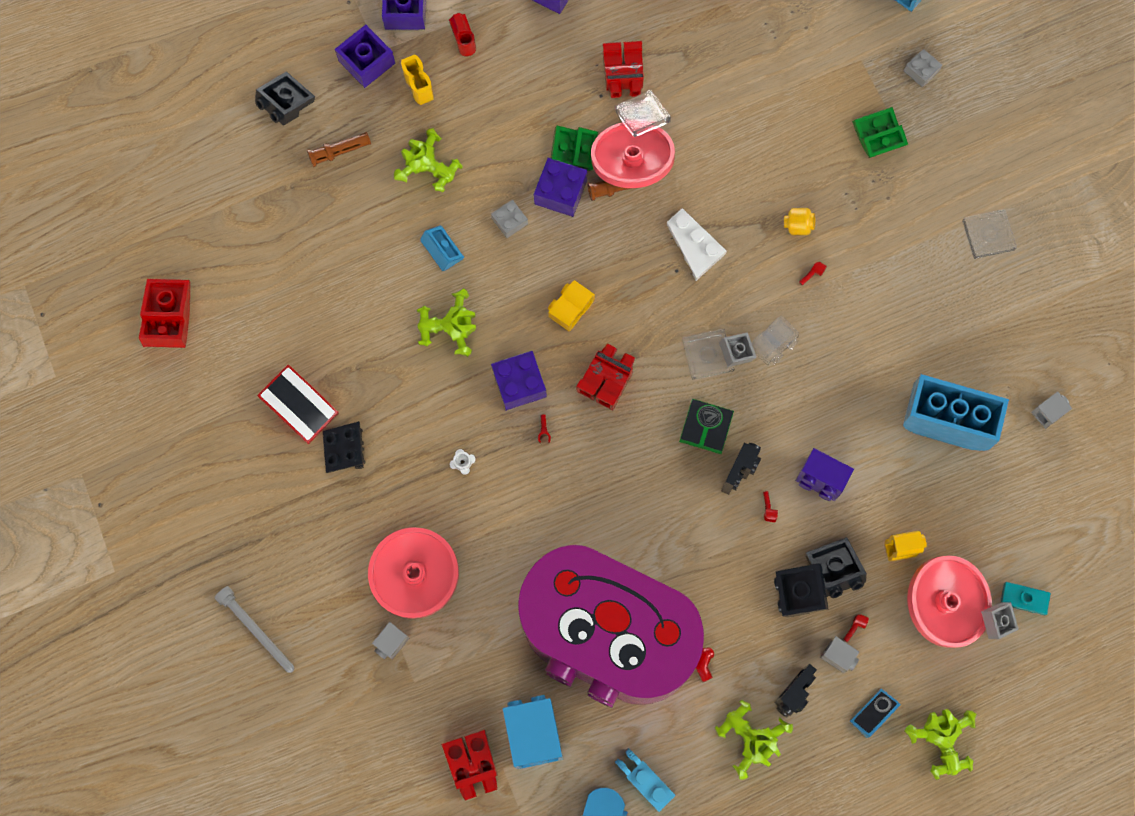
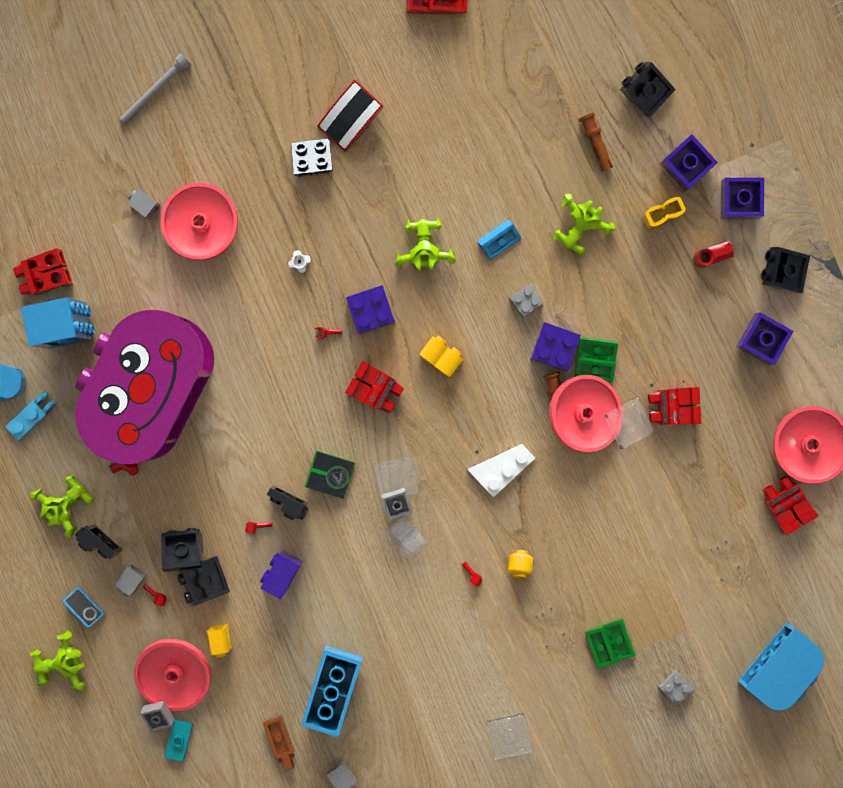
camera: 90 degrees right, 15 degrees up
(1016, 479) = (280, 741): none -> dark orange hinge

